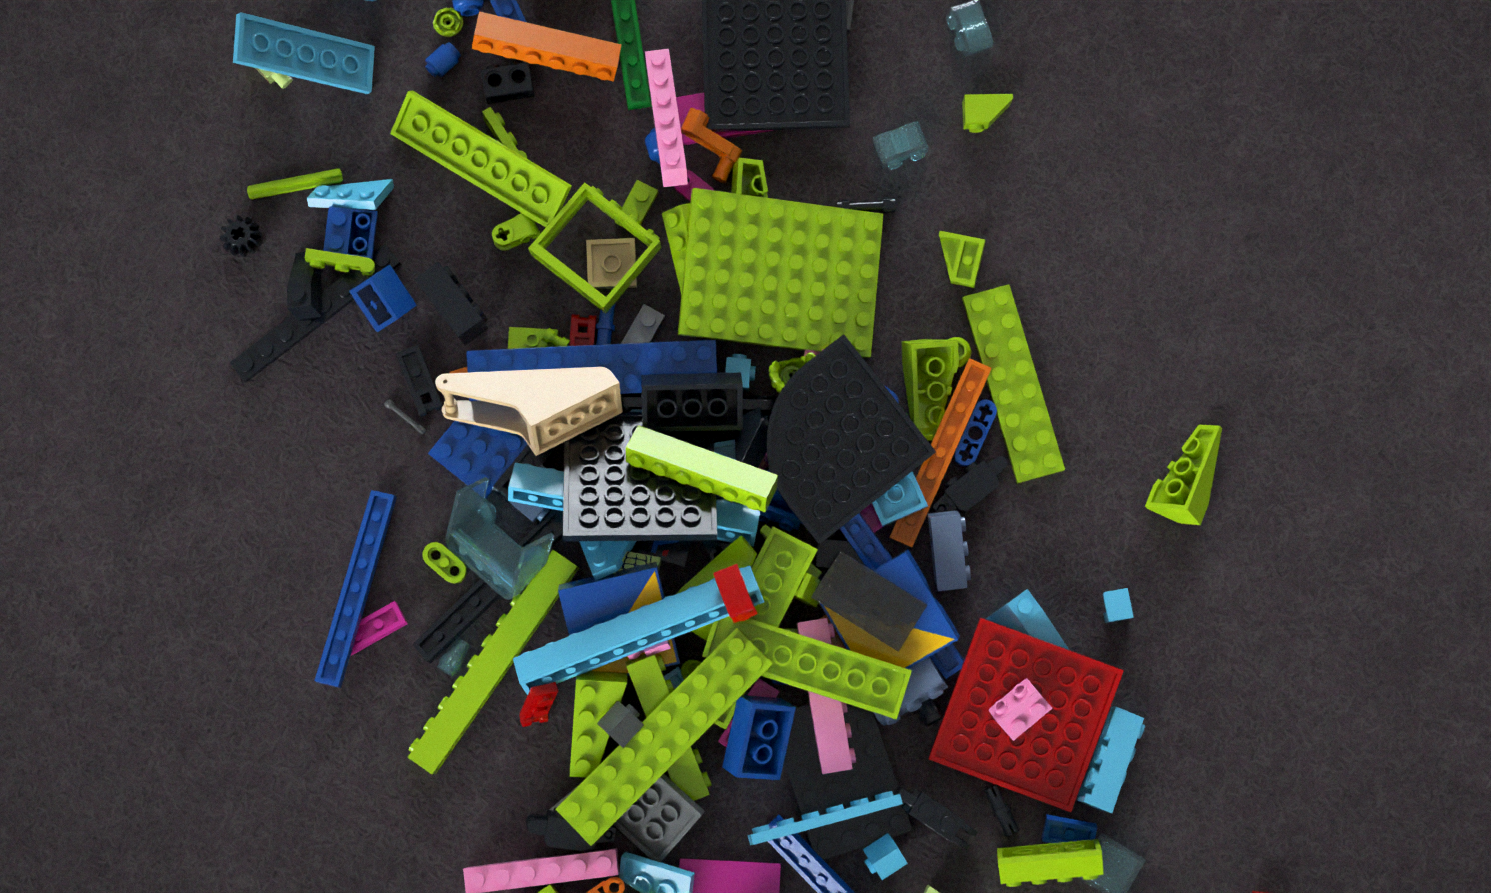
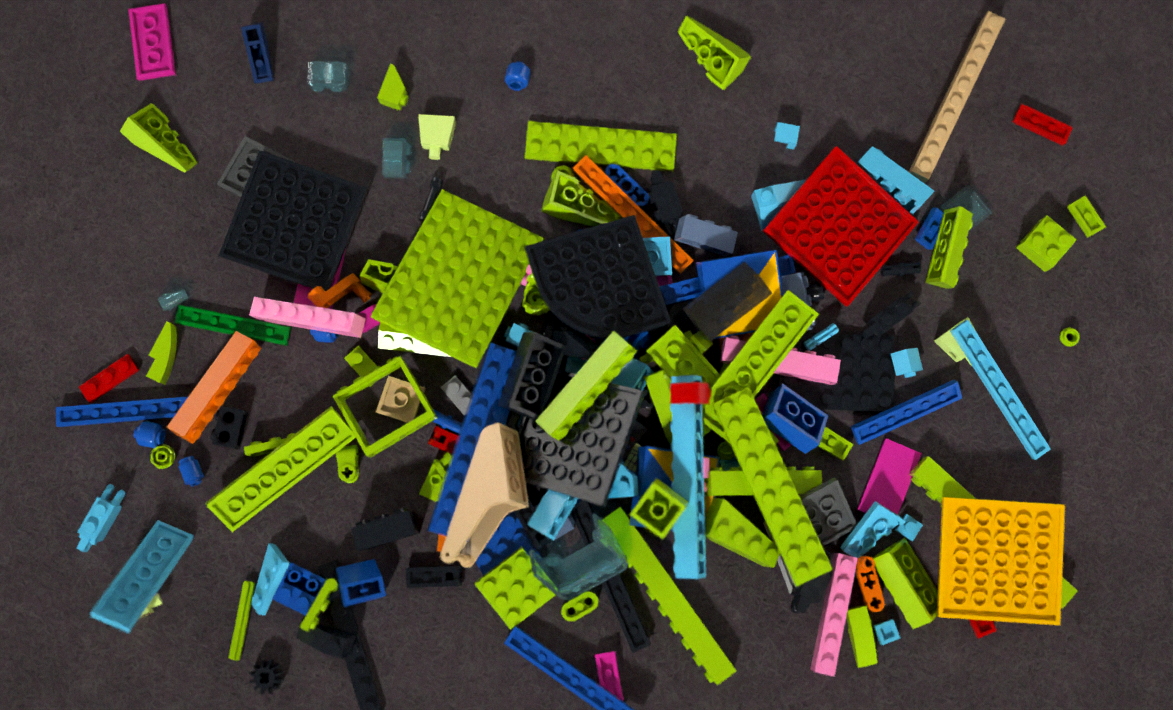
camera: 75 degrees left, 0 degrees up
(390, 405) = (442, 606): dark grey hinge -> none
(435, 475) = (514, 588): none -> lime plate
(453, 658) = (653, 624): clear light blue cone -> none
(538, 704) = (713, 572): red plate -> none
(585, 606) = (659, 508): none -> lime brick
(621, 723) = (752, 514): dark grey brick -> none
(749, 800) = (835, 444): none -> lime plate
(833, 815) = (870, 388): medium azure plate -> none
(875, 737) = (821, 337): none -> medium azure axle
(949, 181) = (436, 133): none -> yellowish green torso
(962, 257) = (495, 146): lime wing -> none
(1019, 709) = (837, 227): bright pink bracket -> none
(1060, 250) = (517, 76): none -> blue head
(1253, 805) = (956, 96): none -> tan brick

